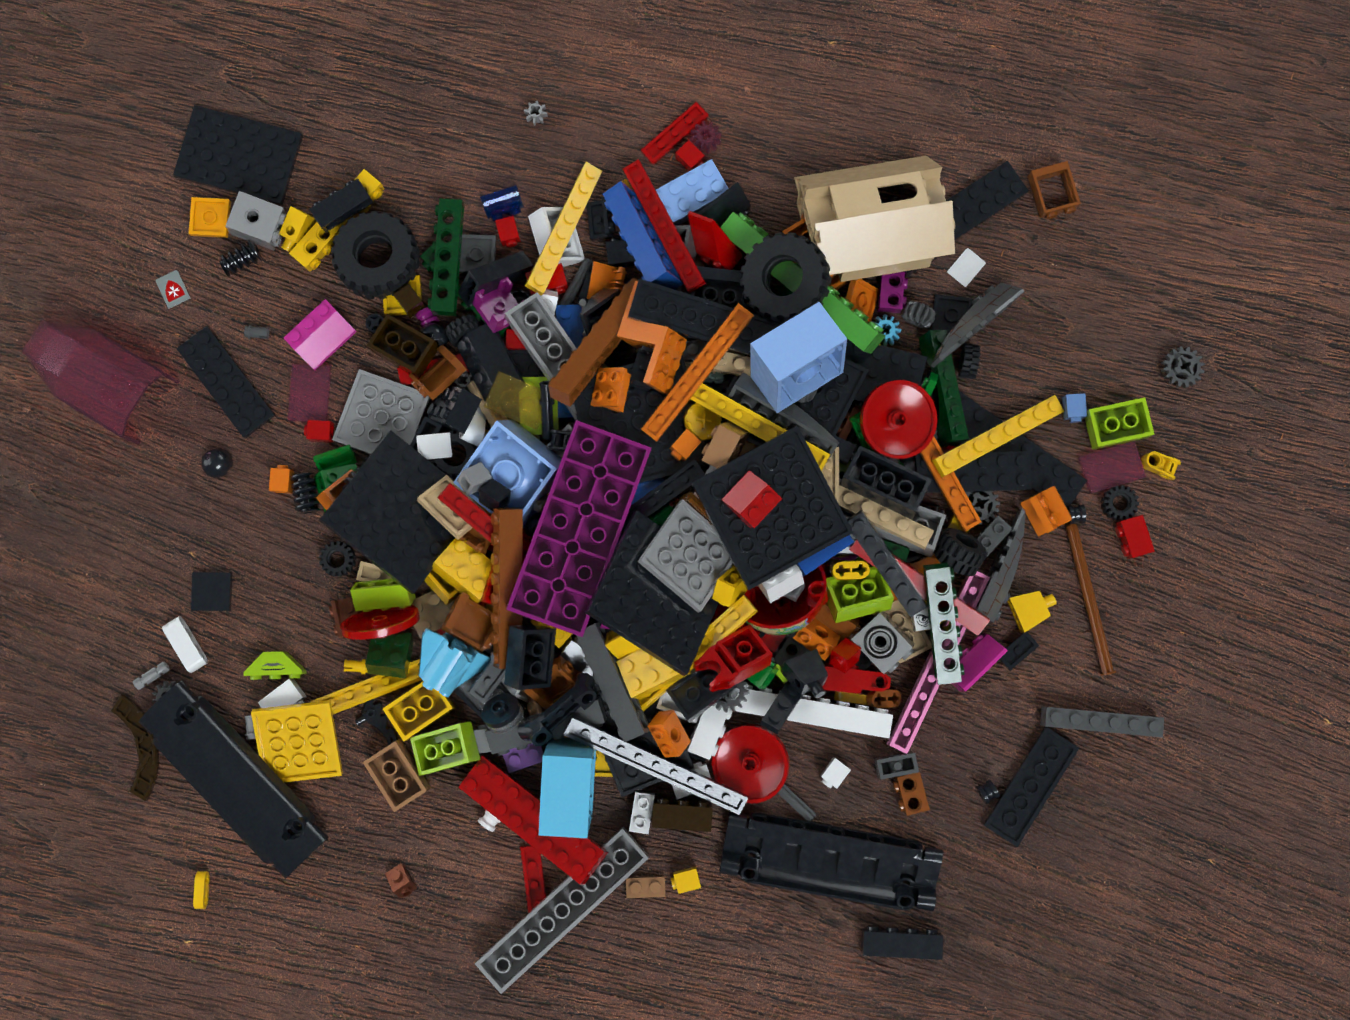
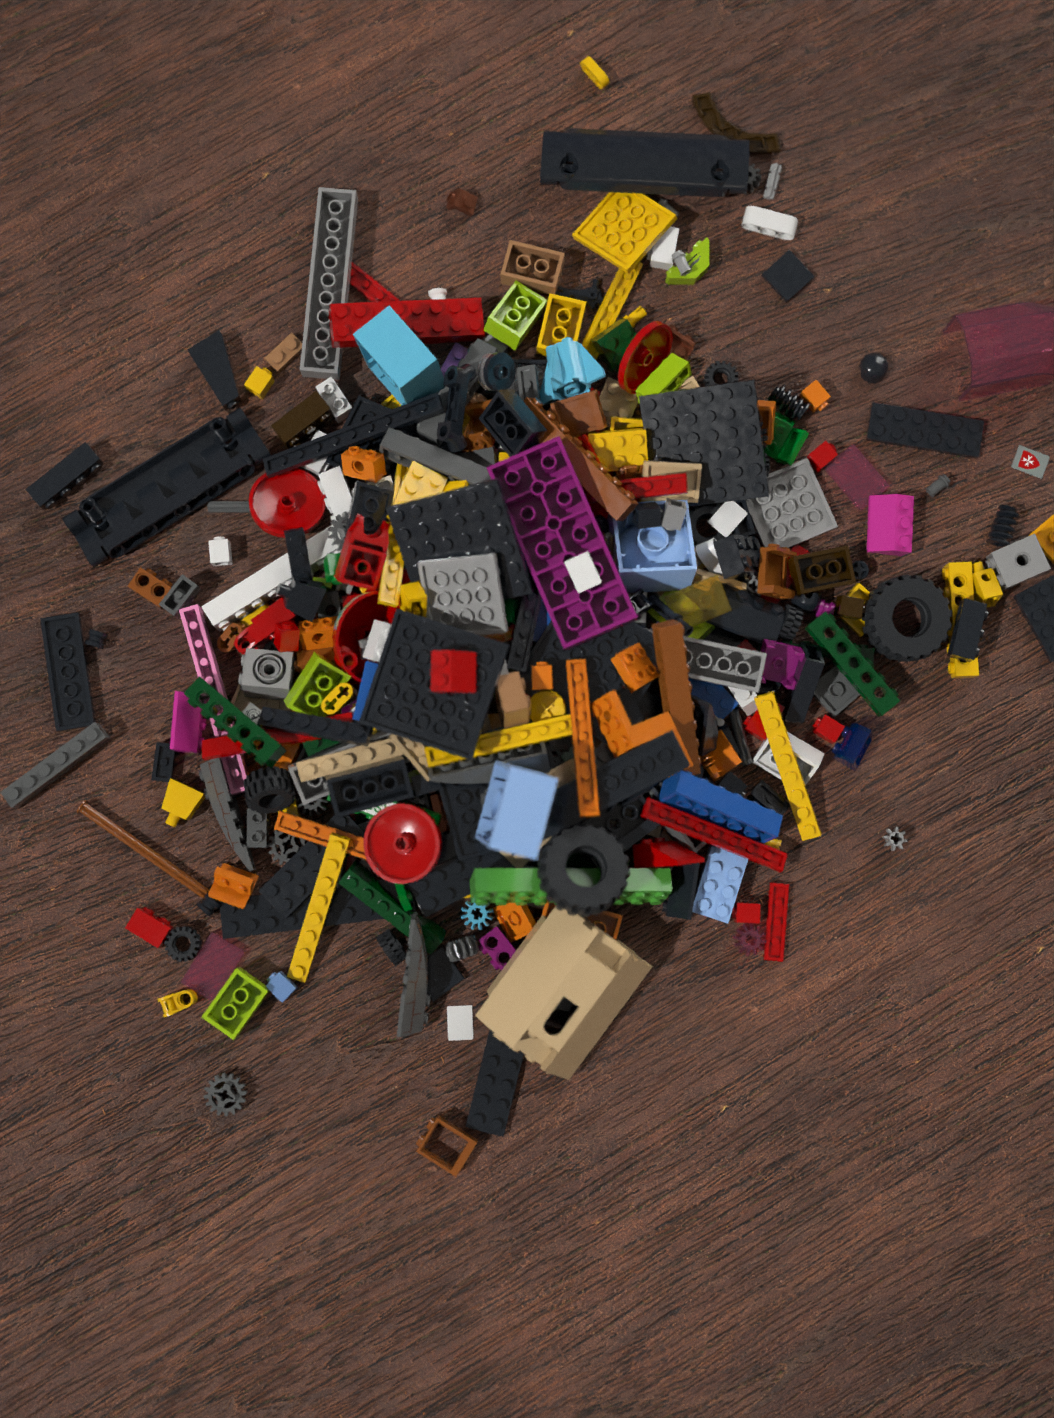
camera: 130 degrees right, 0 degrees up
(282, 672) = (681, 262): none -> light grey pin
(585, 490) = (583, 572): none -> white sticker
(709, 924) = (215, 365): none -> black slope

